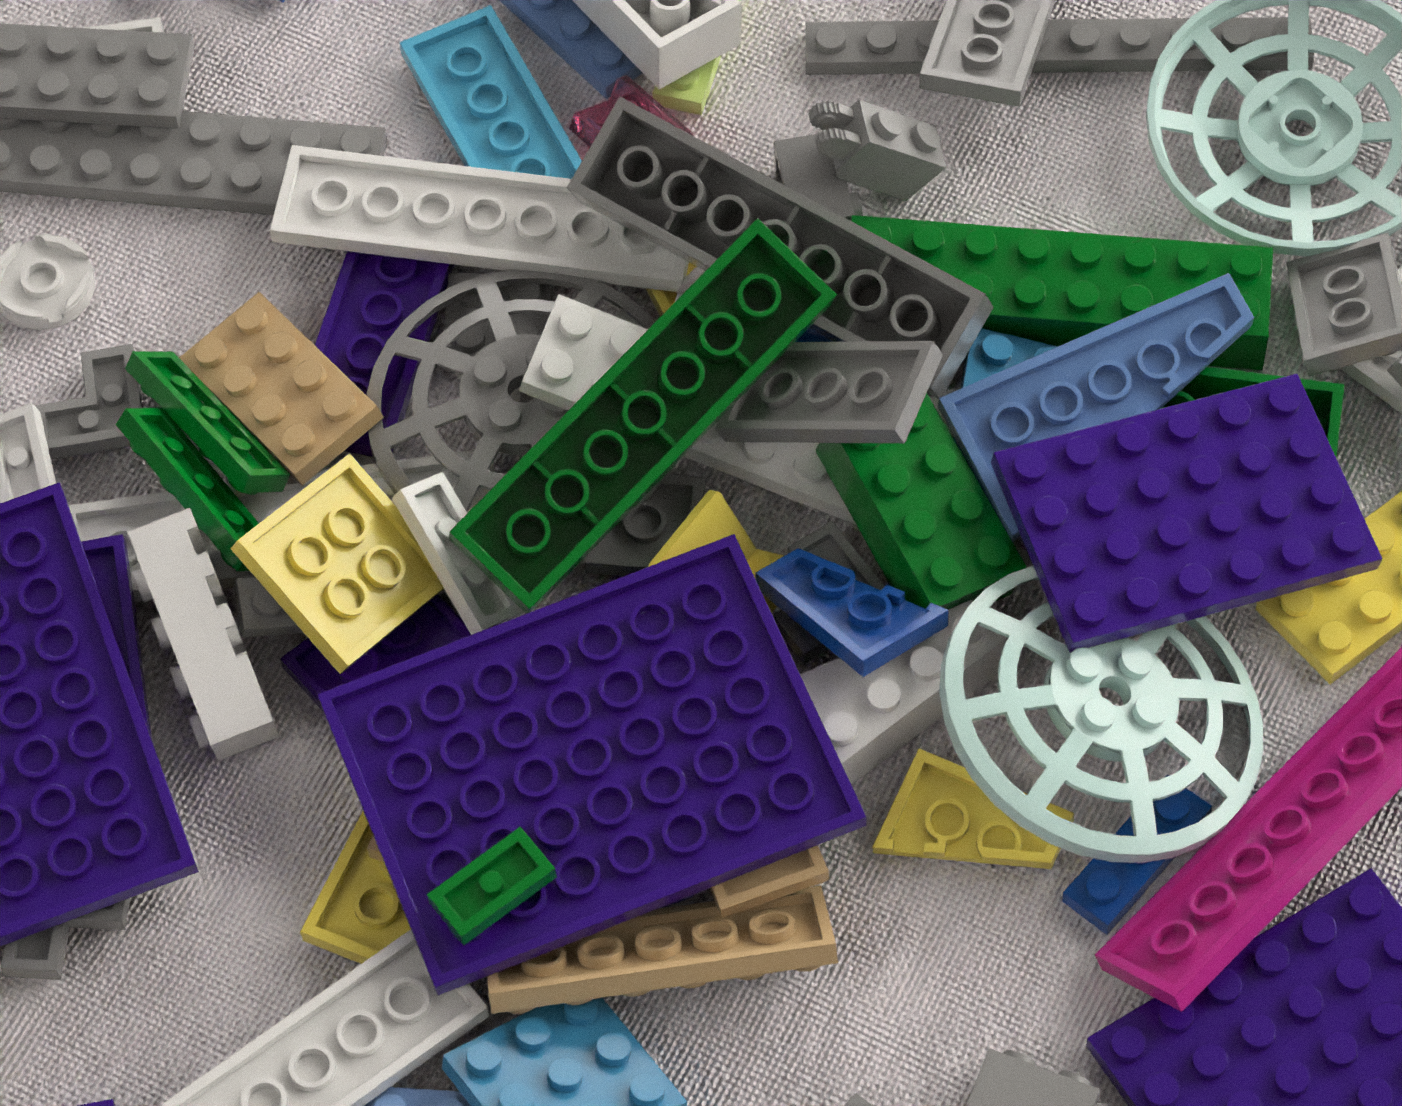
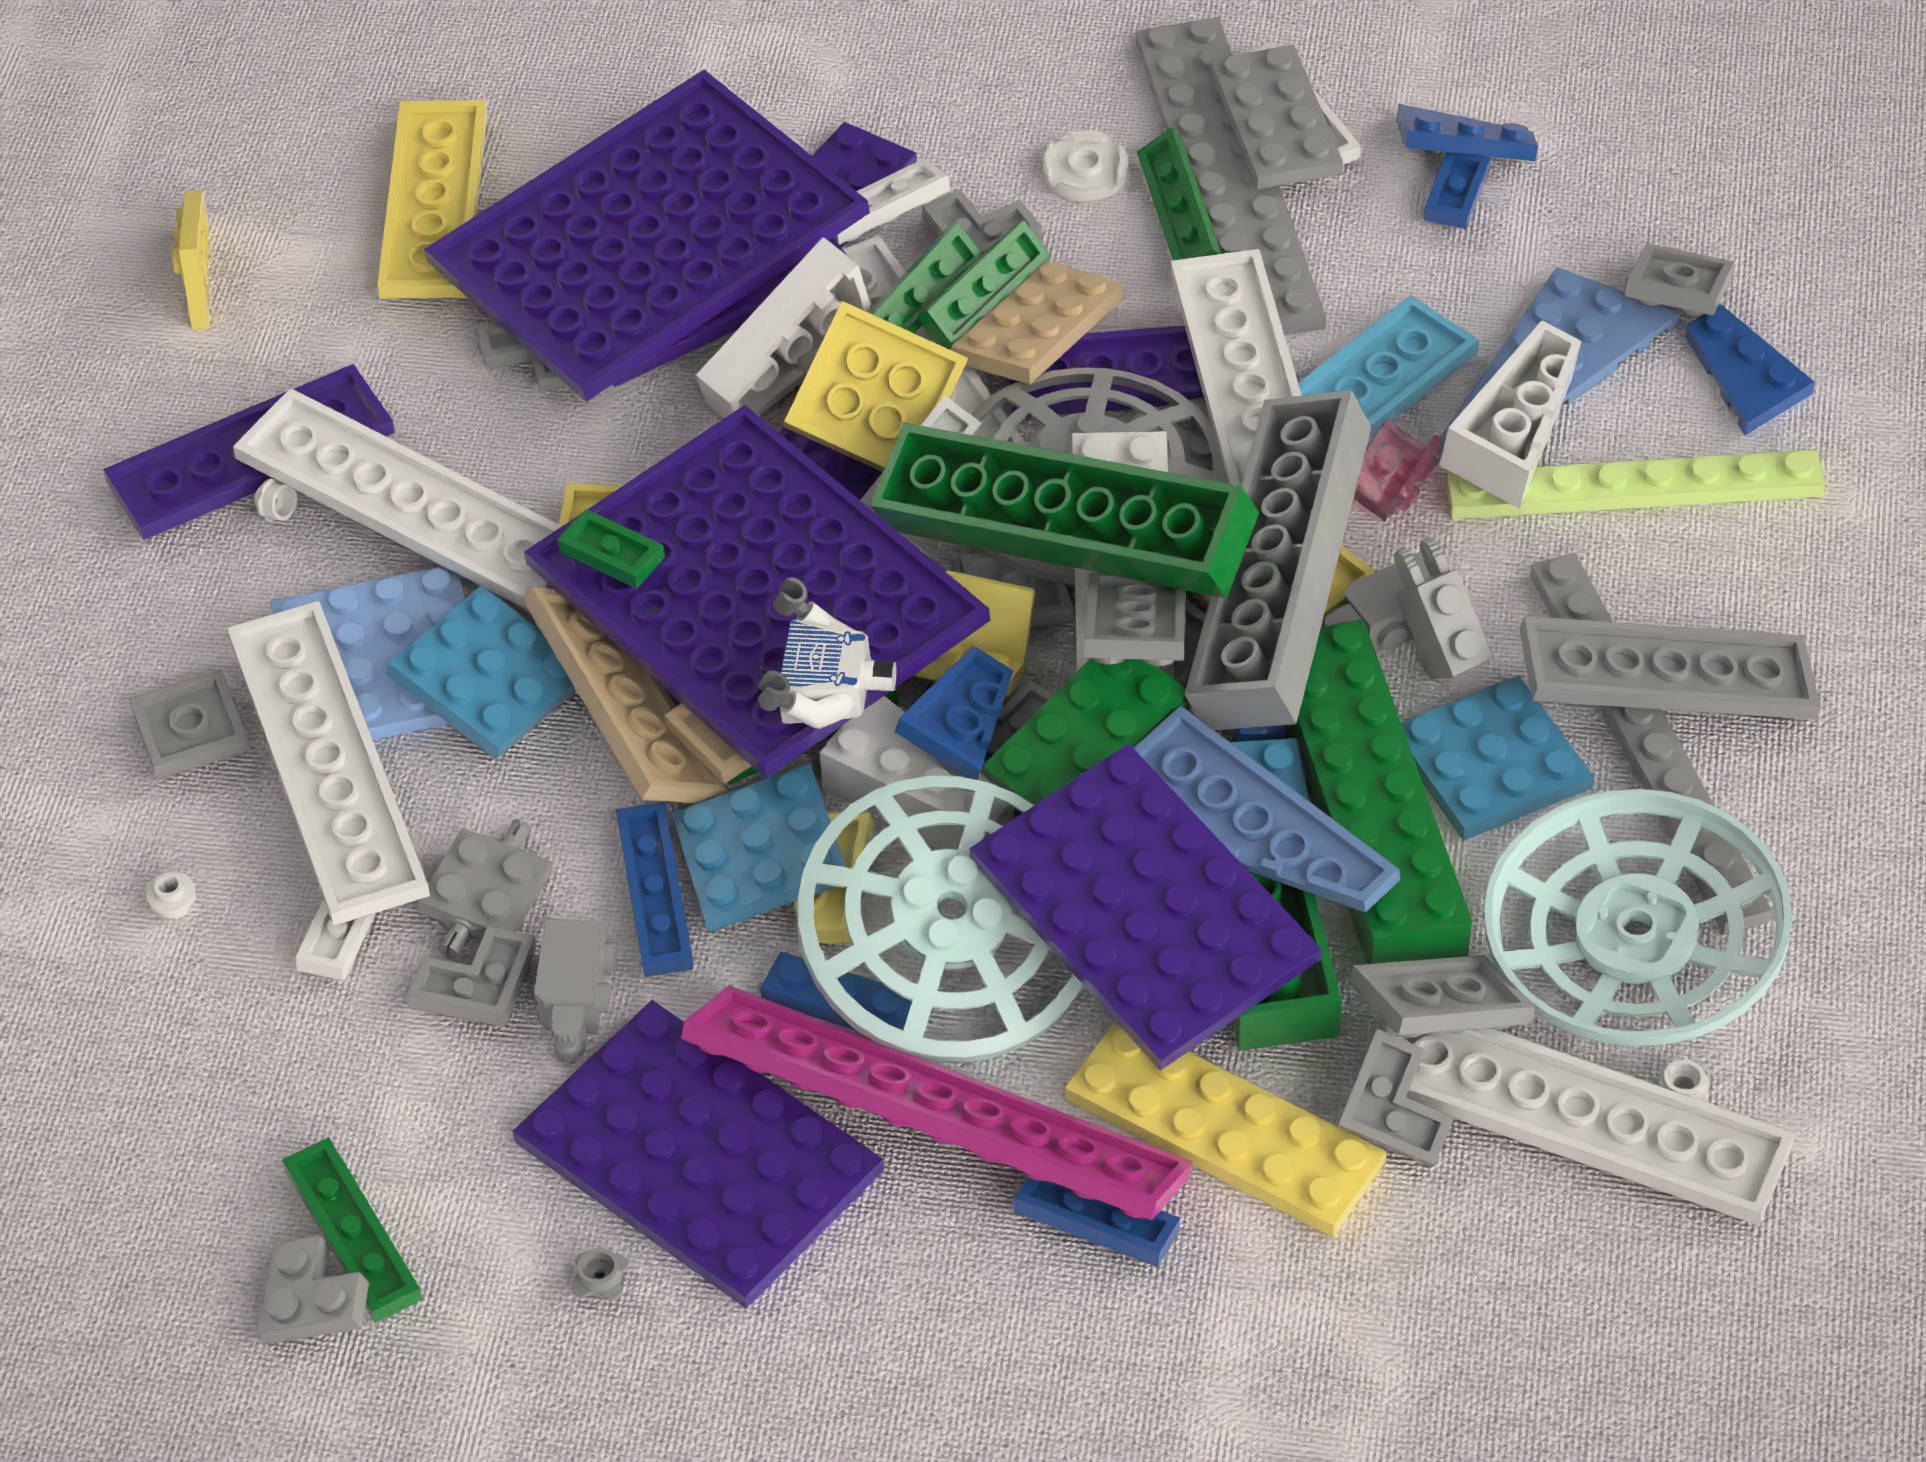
camera: 70 degrees right, 10 degrees down
(158, 207) = (1177, 197): none -> green plate
(776, 709) = (823, 666): none -> torso
(922, 875) = (753, 845): none -> dark azure plate
(934, 996) = (654, 889): none -> blue plate
(1035, 170) = (1493, 758): none -> dark azure plate

